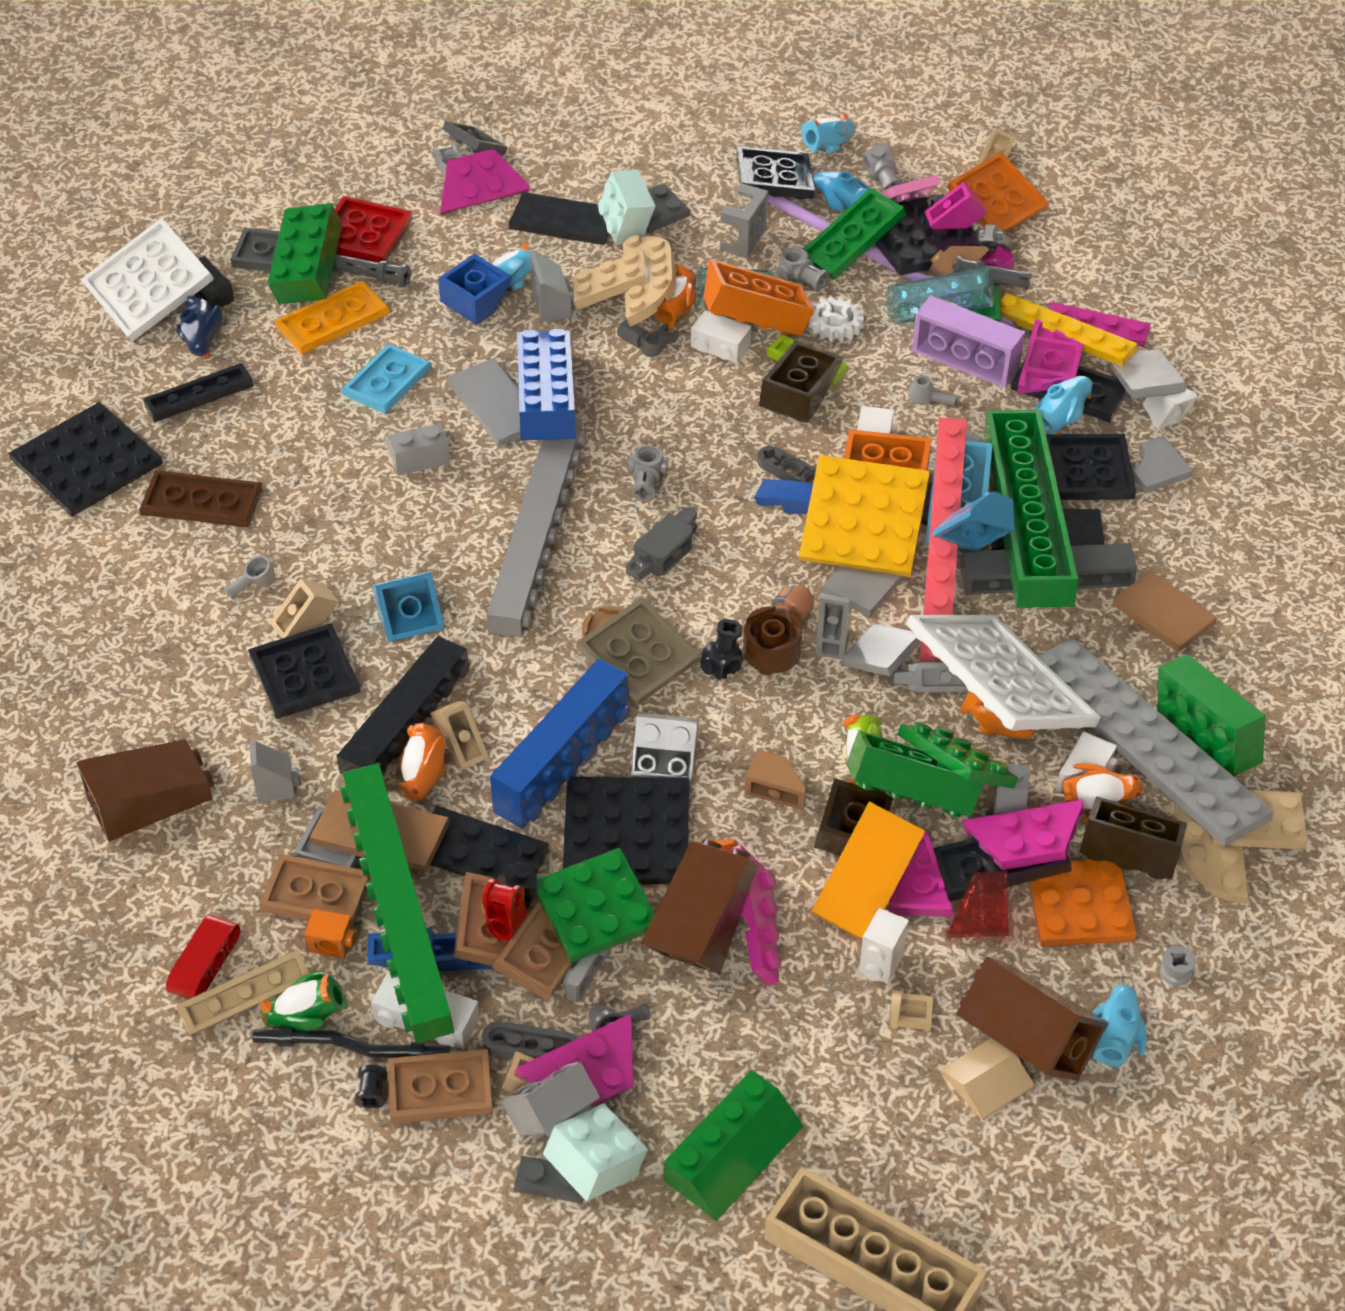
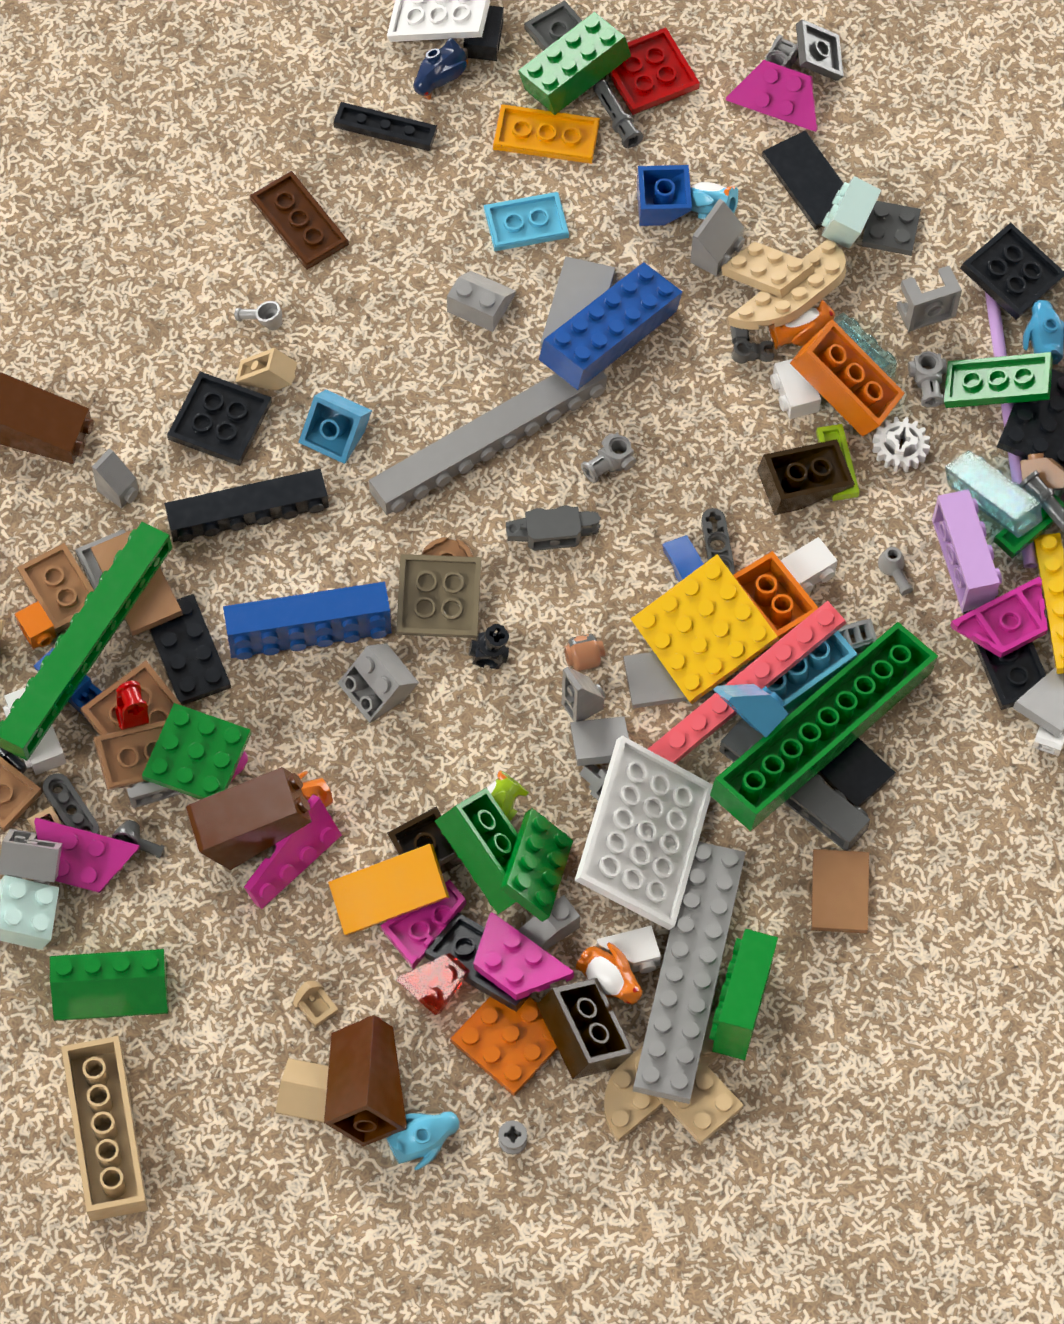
camera: 45 degrees right, 15 degrees up
(85, 459) = (259, 121): black plate -> none
(422, 761) = (212, 555): orange animal -> none
(460, 733) = (261, 554): tan slope -> none
(521, 875) = (161, 696): black brick -> none
(634, 814) = (292, 715): black plate -> none
(772, 640) = (530, 681): reddish brown brick -> none
(774, 780) = (417, 769): medium nougat slope -> none
(883, 946) = (336, 947): white brick -> none
(1064, 403) = (970, 665): medium azure animal -> none
(1092, 466) = (932, 732): black plate -> none
(1160, 465) = (989, 779): light grey tile -> none

